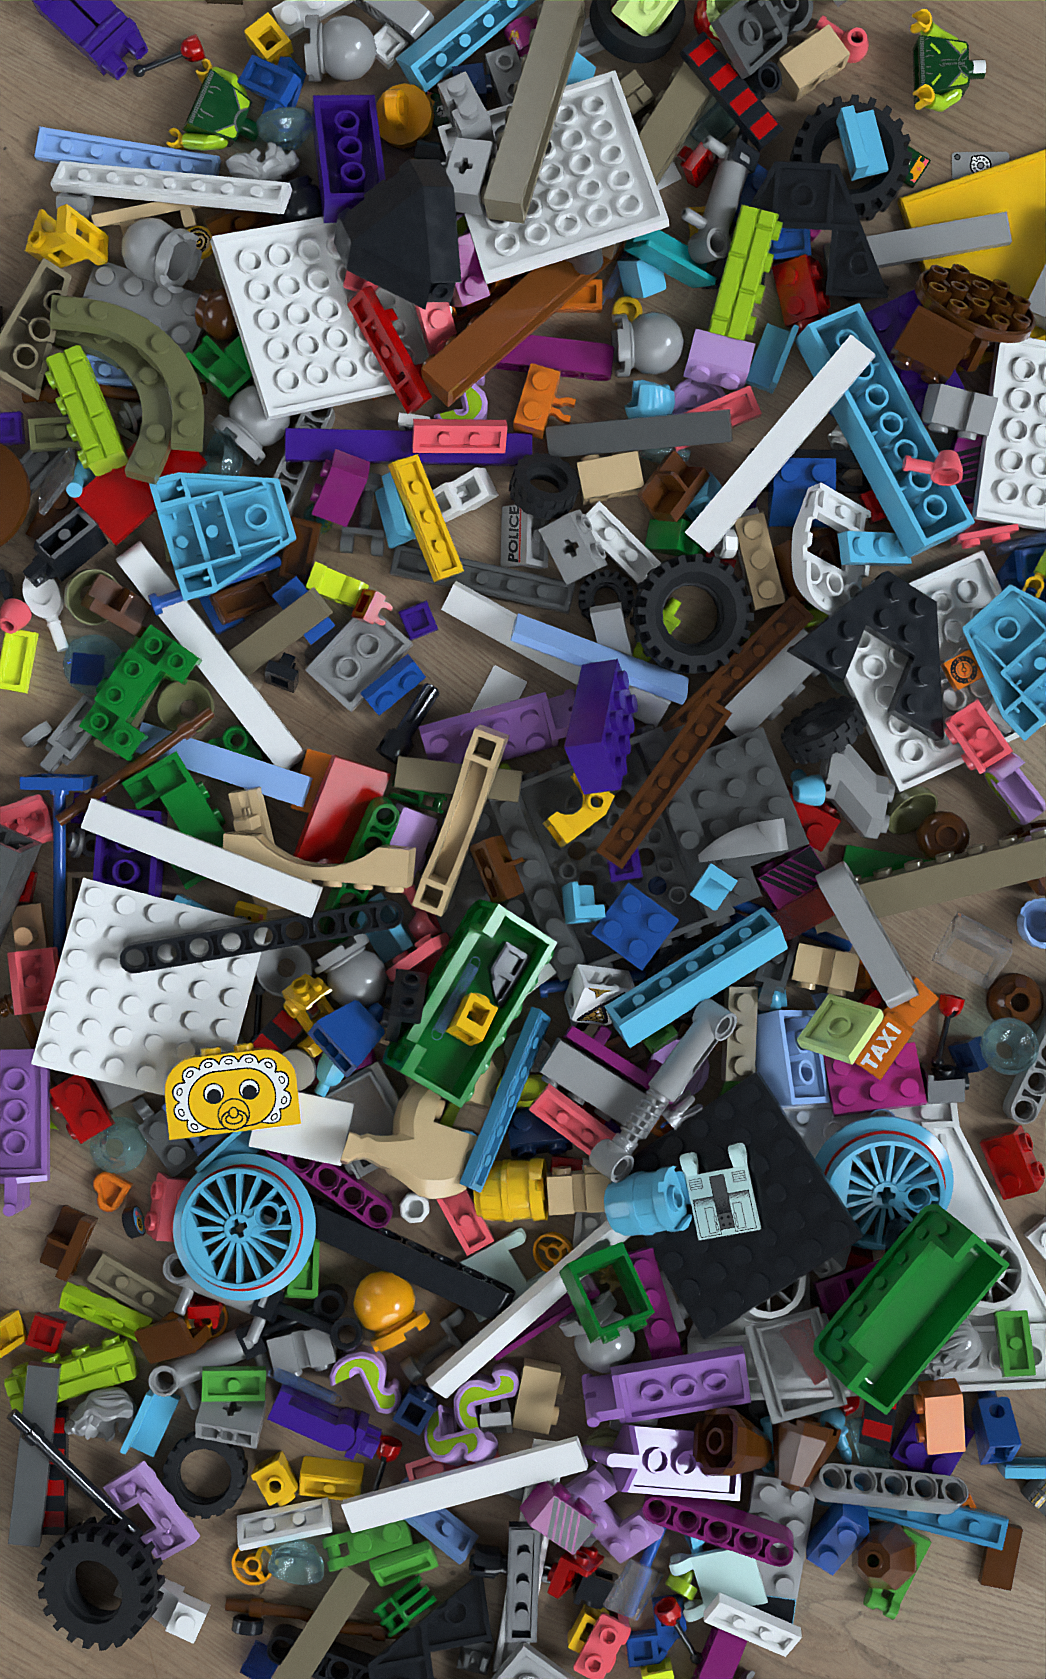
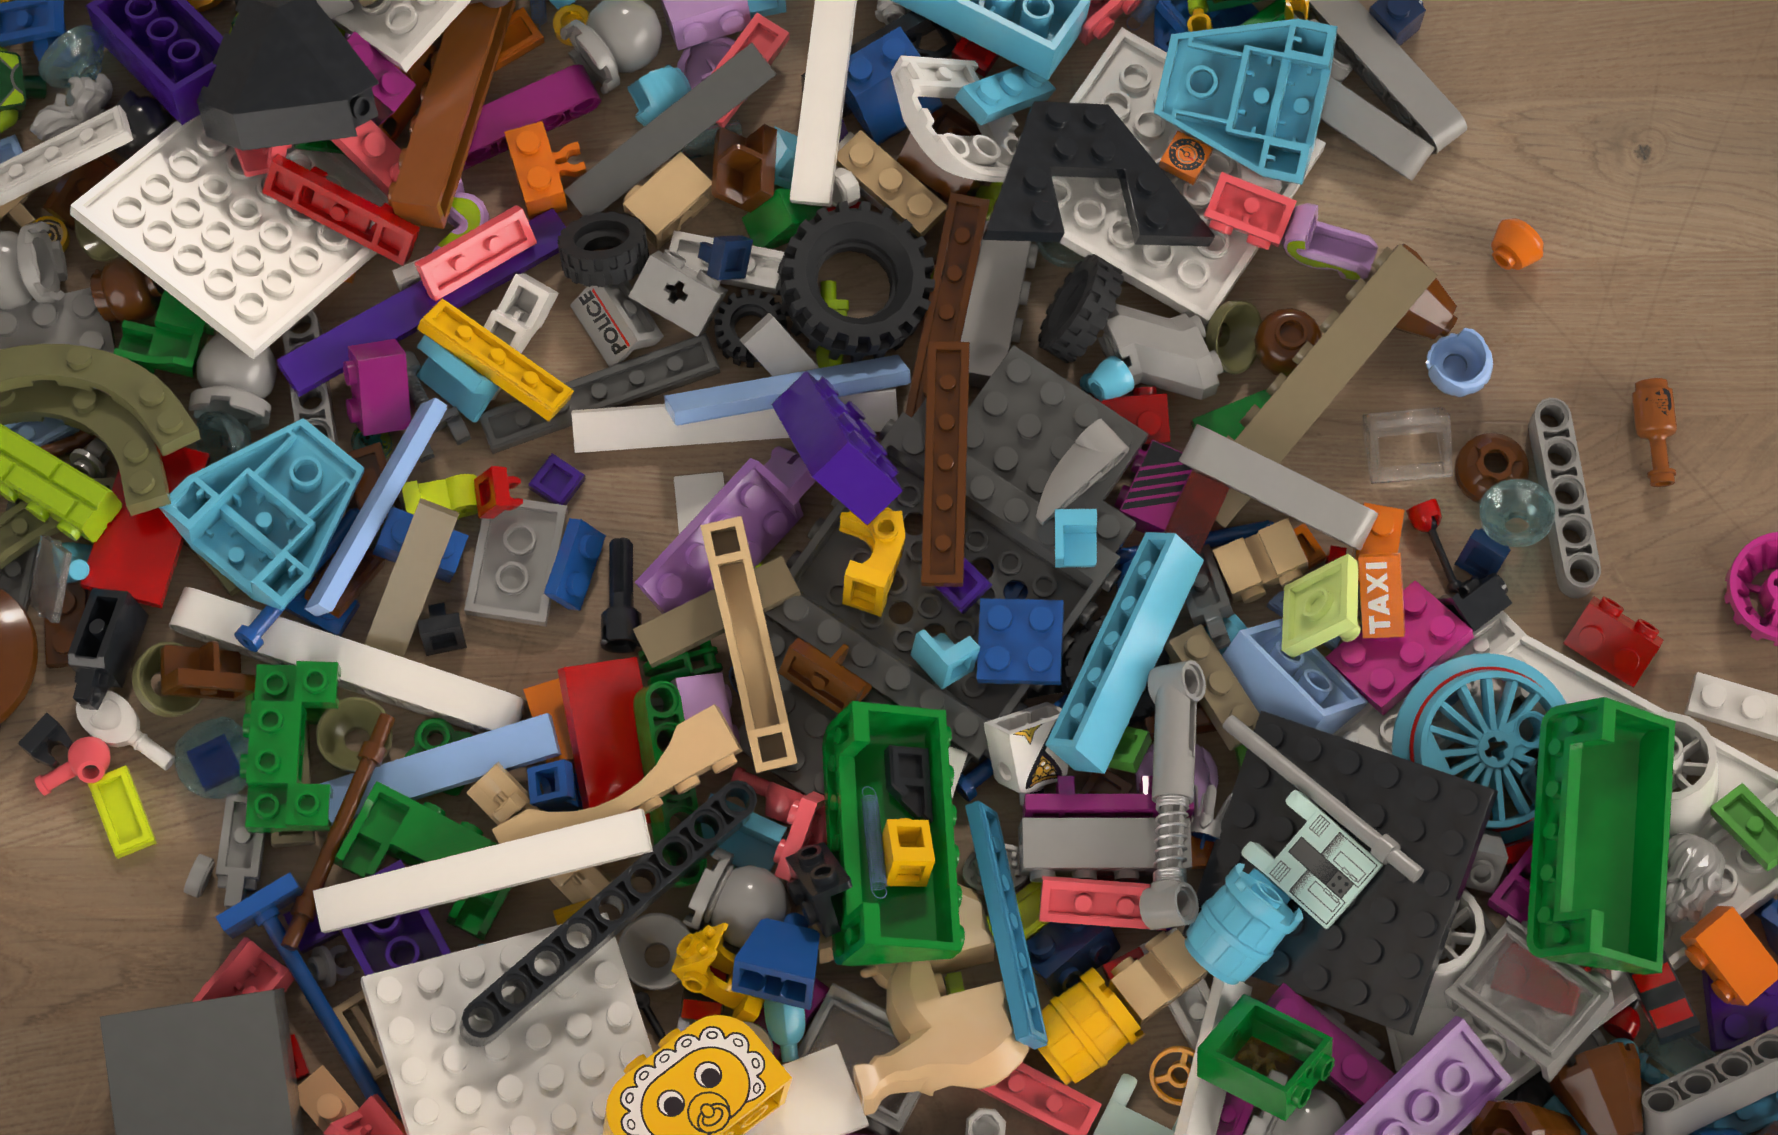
camera: 35 degrees left, 15 degrees down
(287, 569) = (376, 507): none -> light blue tile
(288, 828) = (559, 787): none -> blue leg
(618, 544) = (726, 257): none -> dark blue tile
(767, 1221) = (1382, 847): none -> light grey bar

